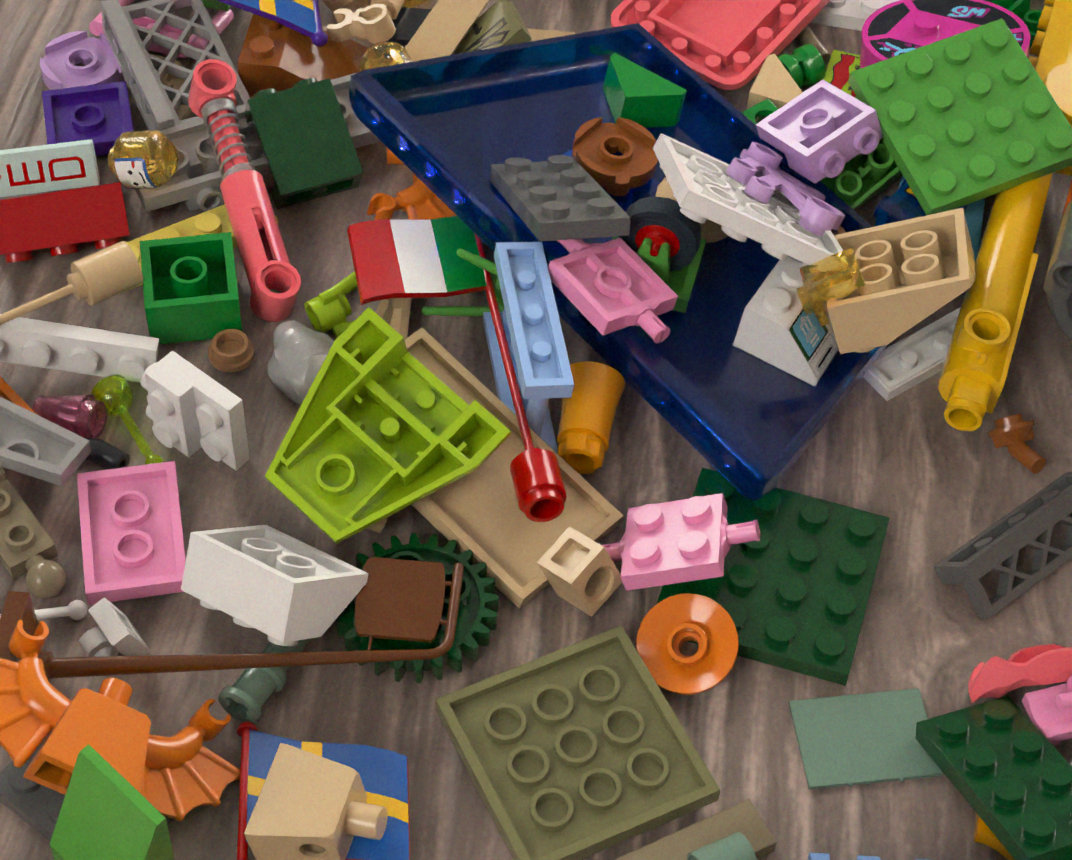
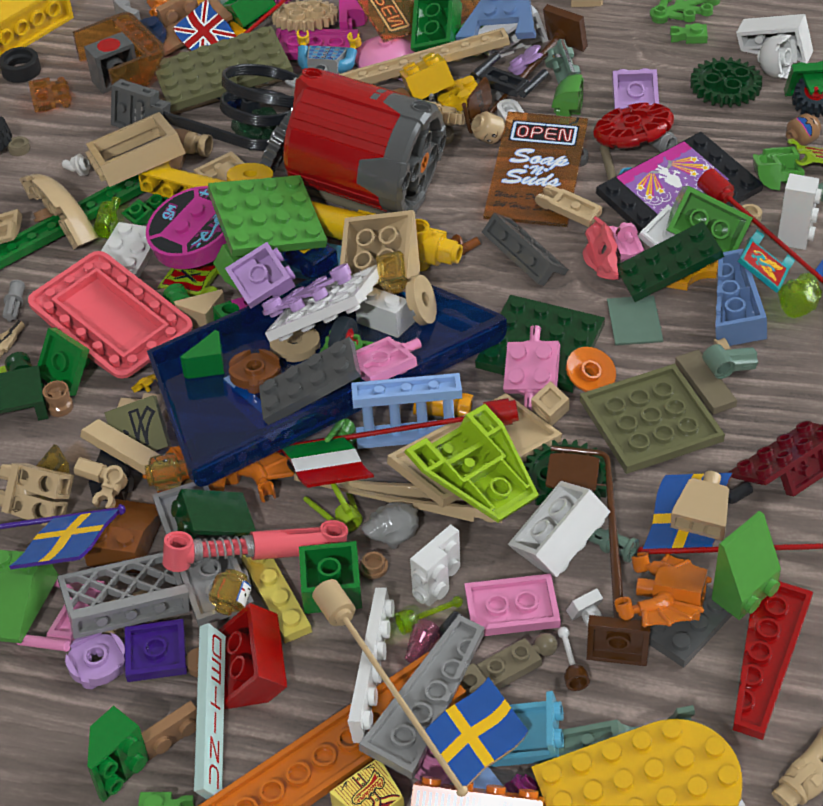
camera: 80 degrees left, 5 degrees down
(806, 376) = (421, 299): none -> tan tile

